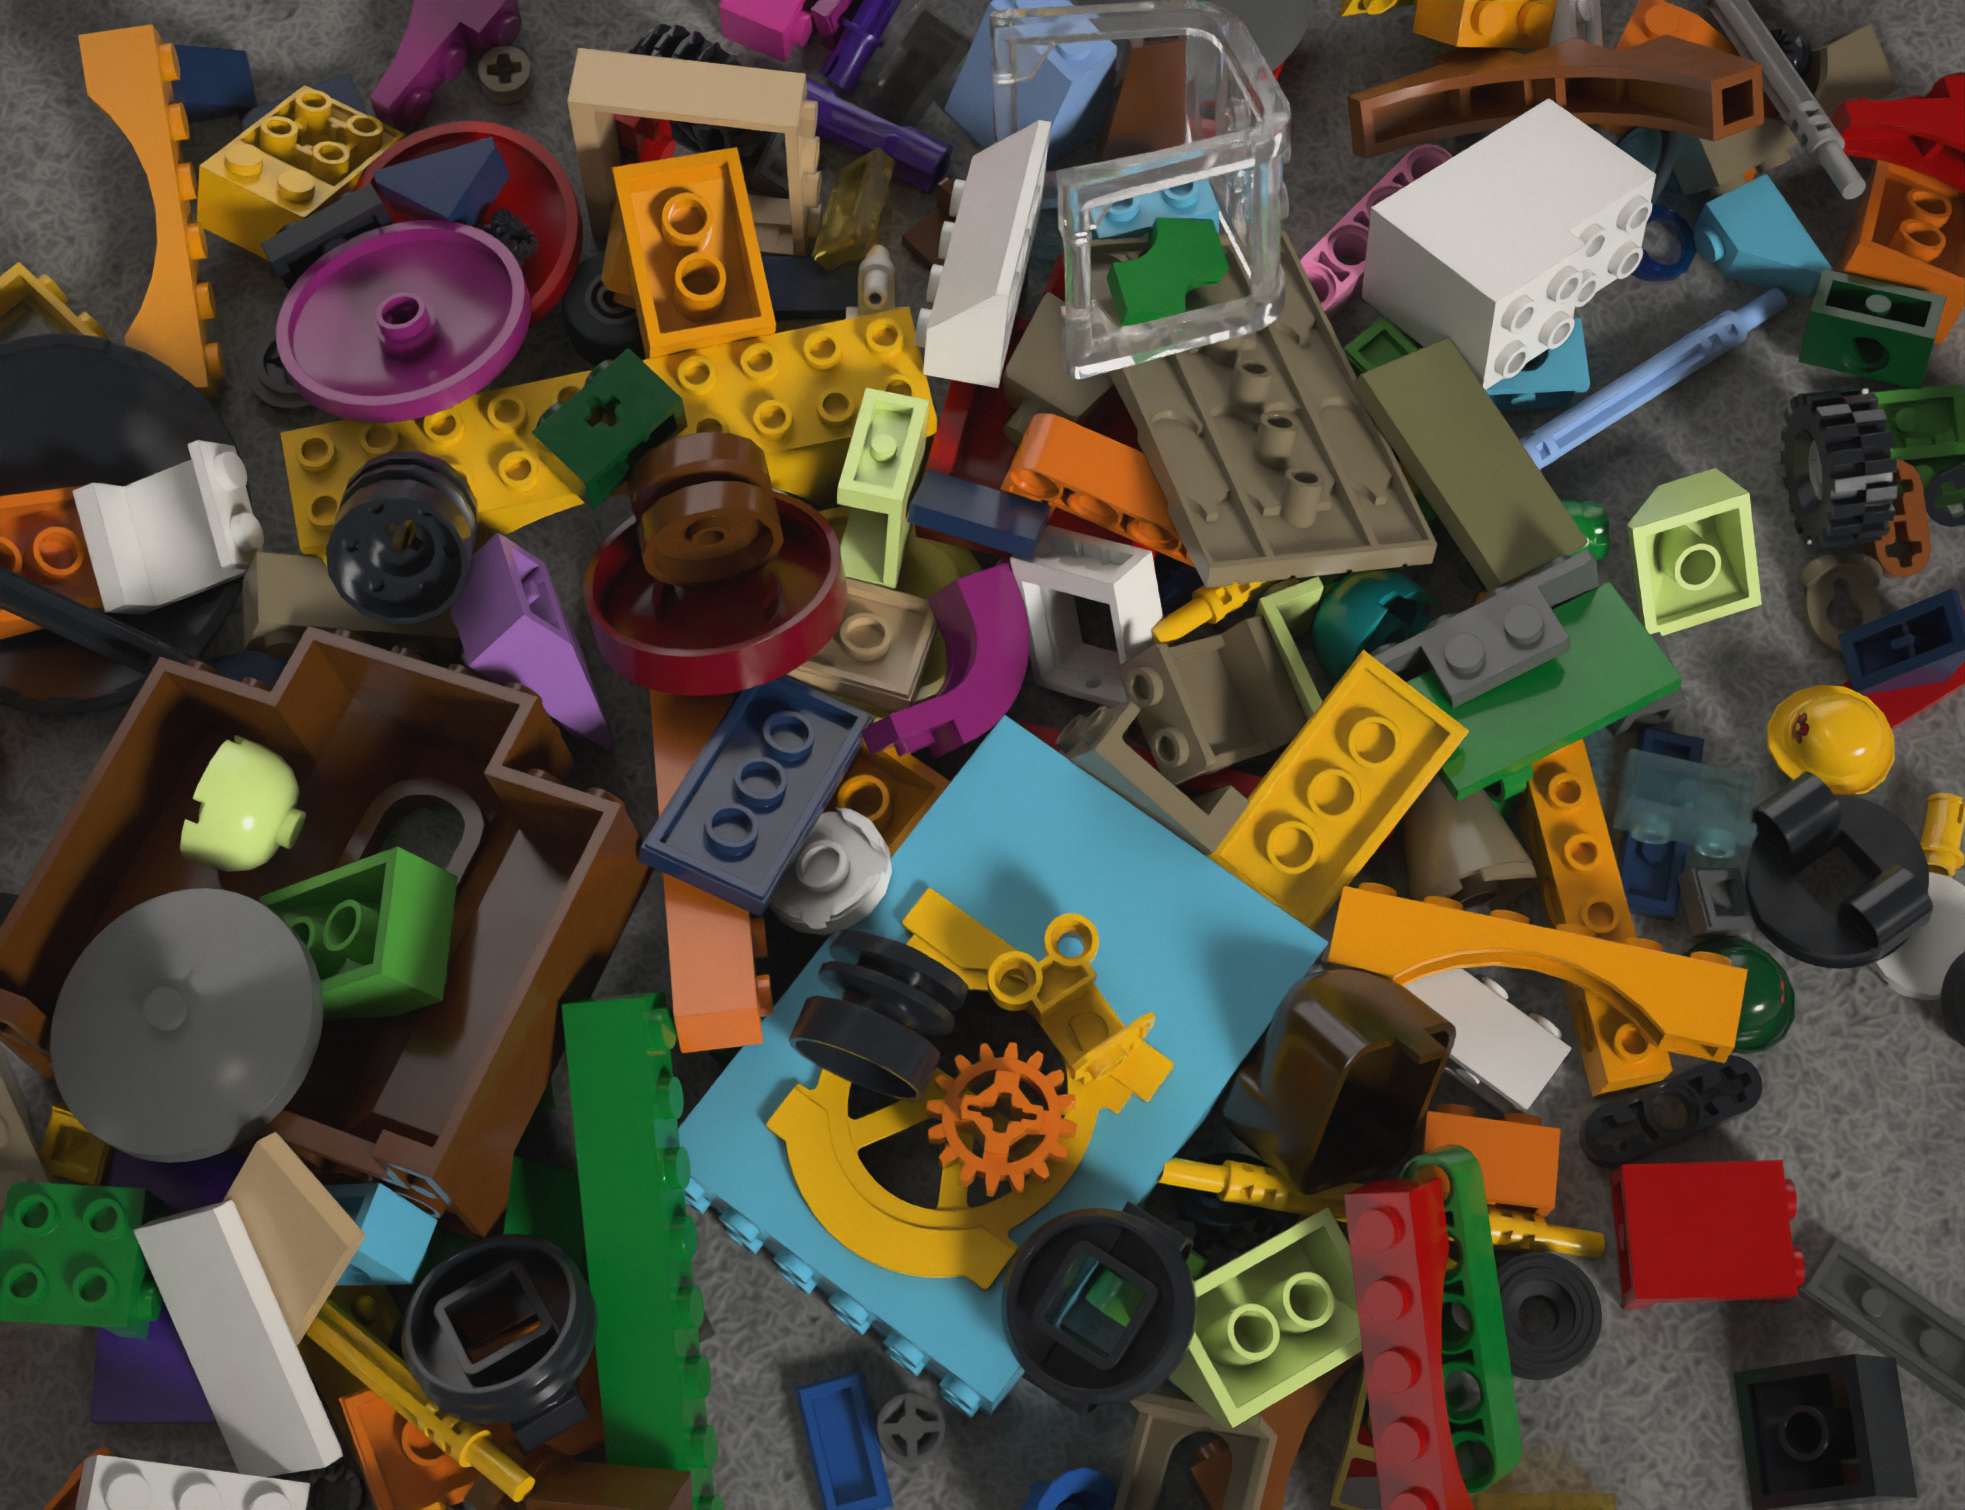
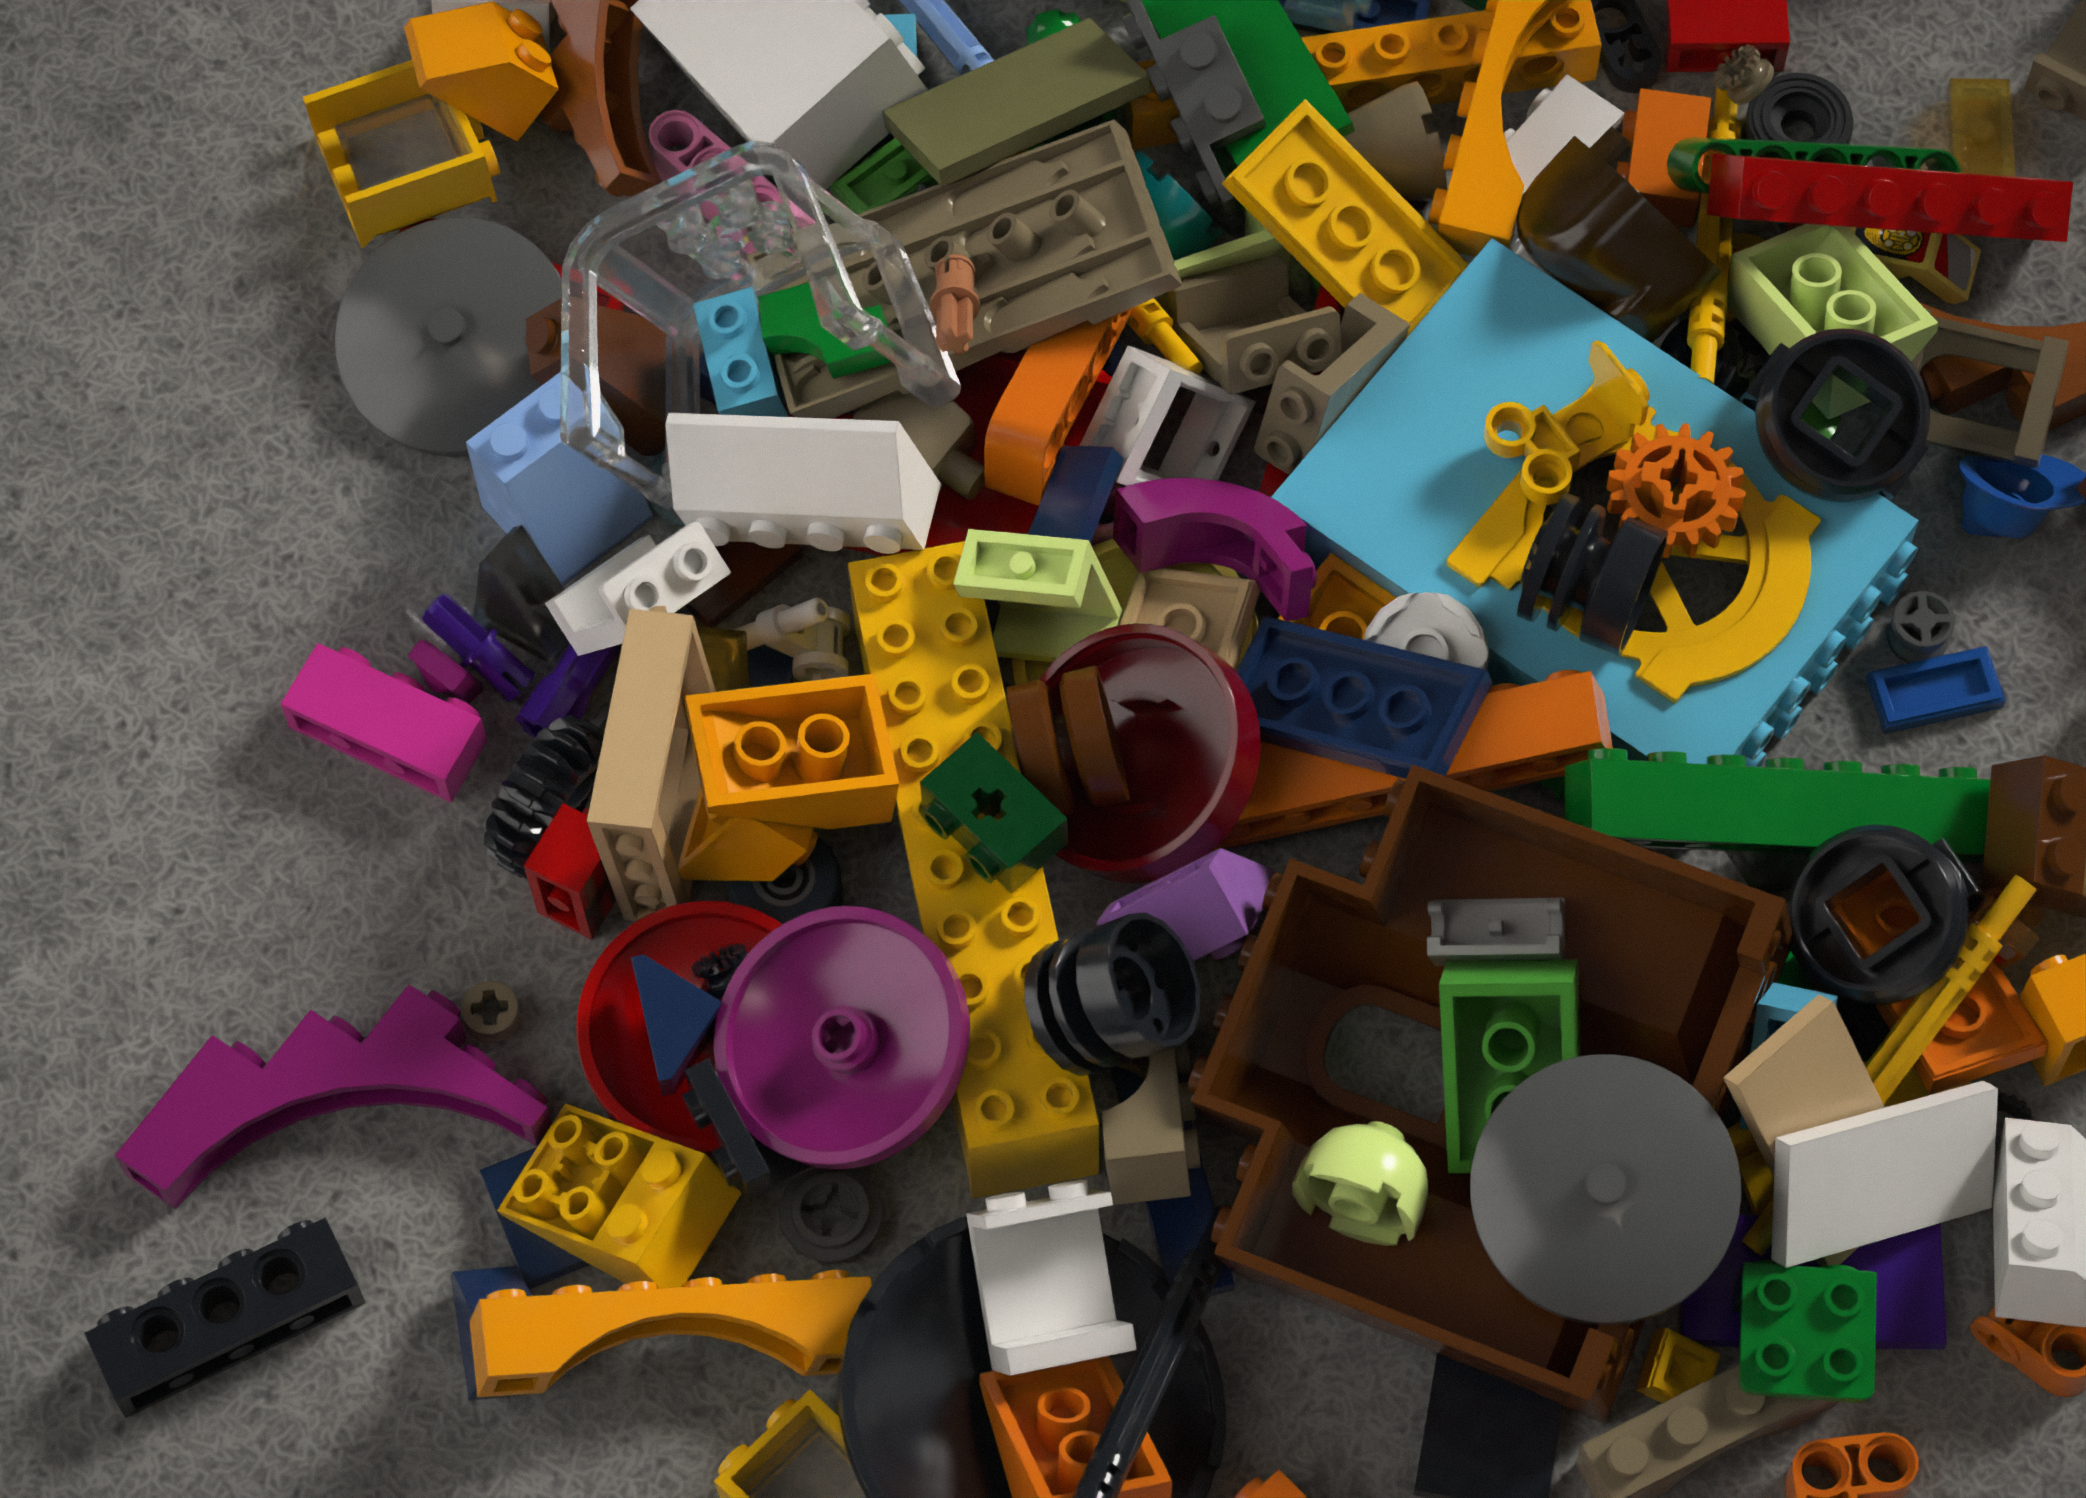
camera: 85 degrees left, 5 degrees down
(483, 923) = (1496, 929): none -> light grey hinge
(889, 132) = (638, 577): none -> white panel
(1177, 371) = (954, 303): none -> nougat axle
(1592, 1249) = (1744, 75): none -> dark tan bush

